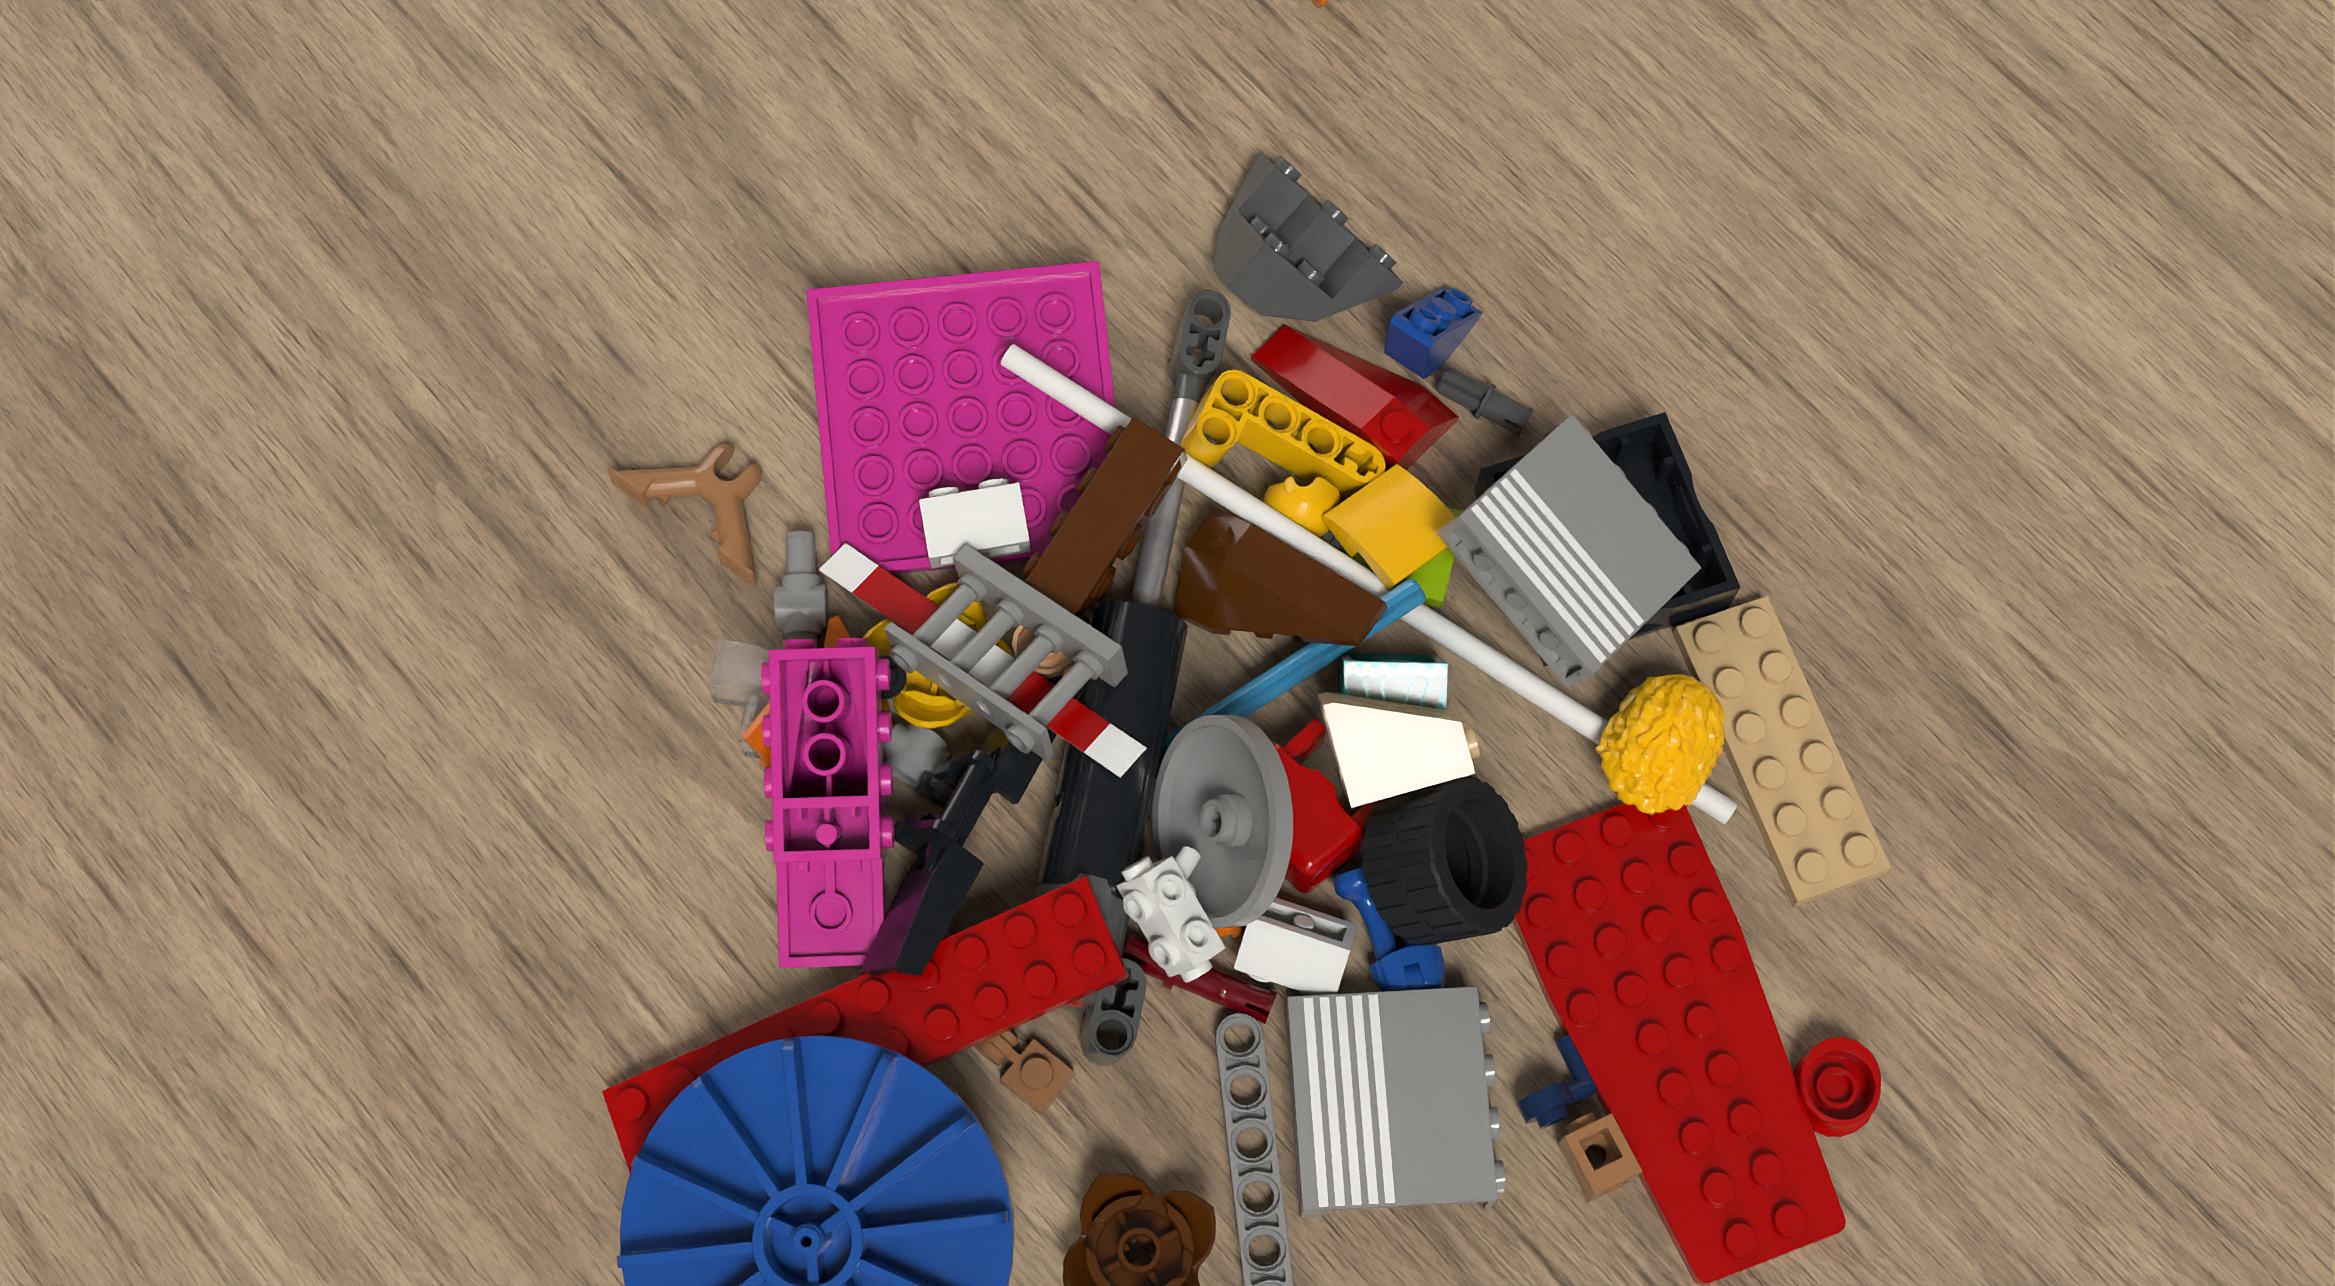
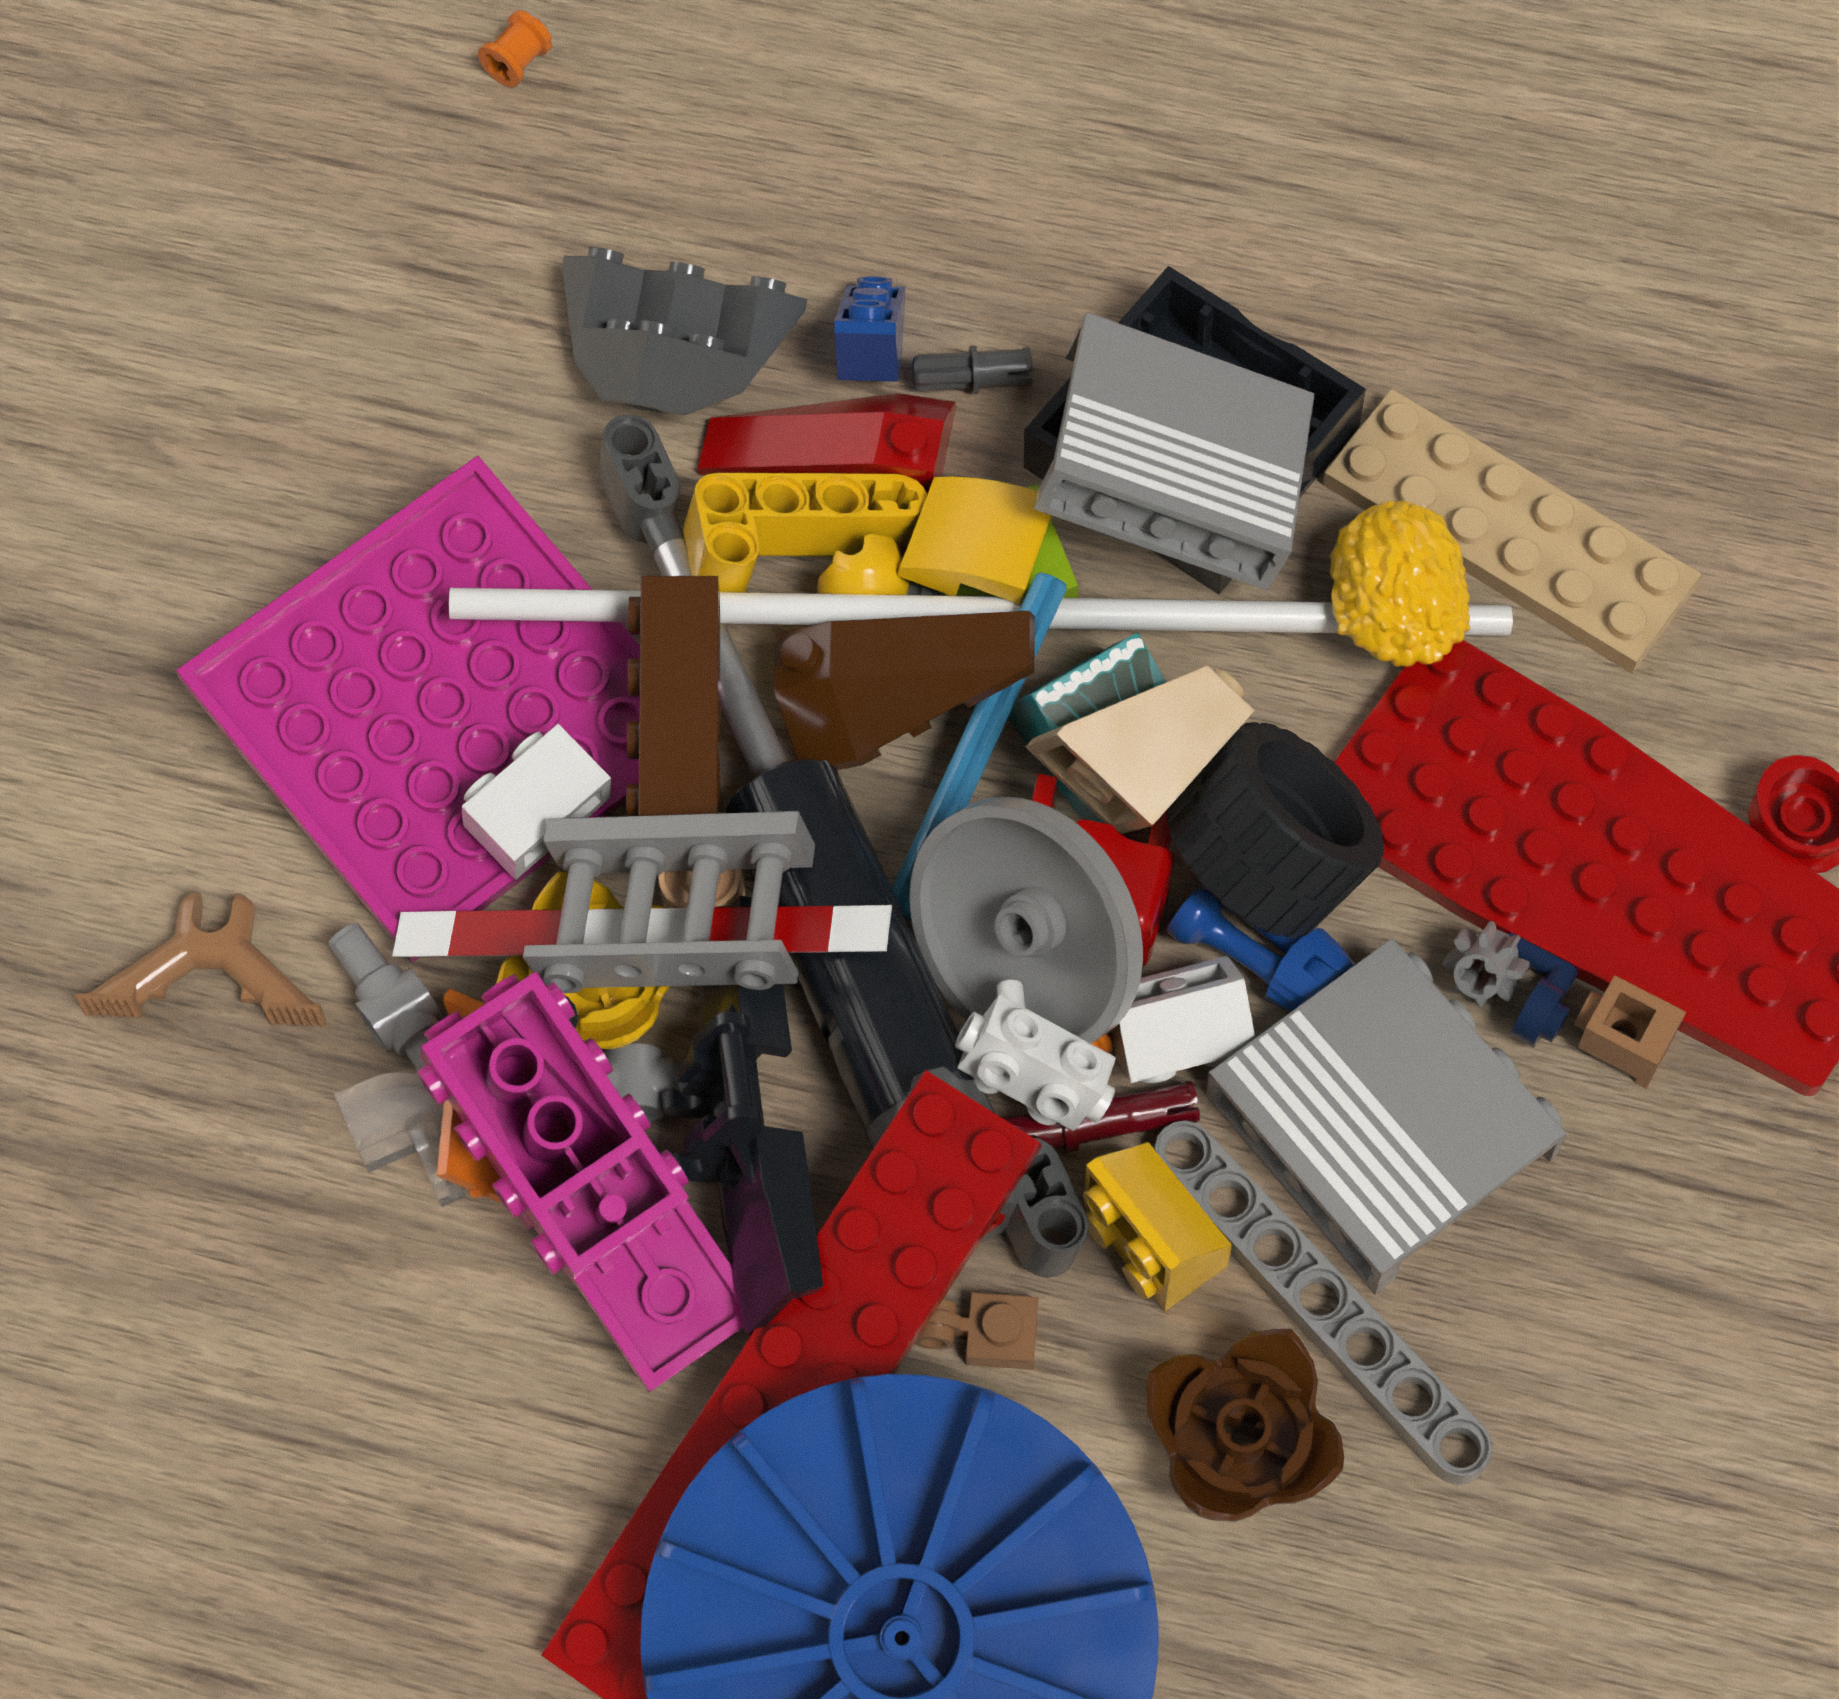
camera: 30 degrees left, 5 degrees down
(1183, 1073) = (1152, 1225): none -> yellow slope
(1533, 1045) = (1486, 964): none -> light grey gear

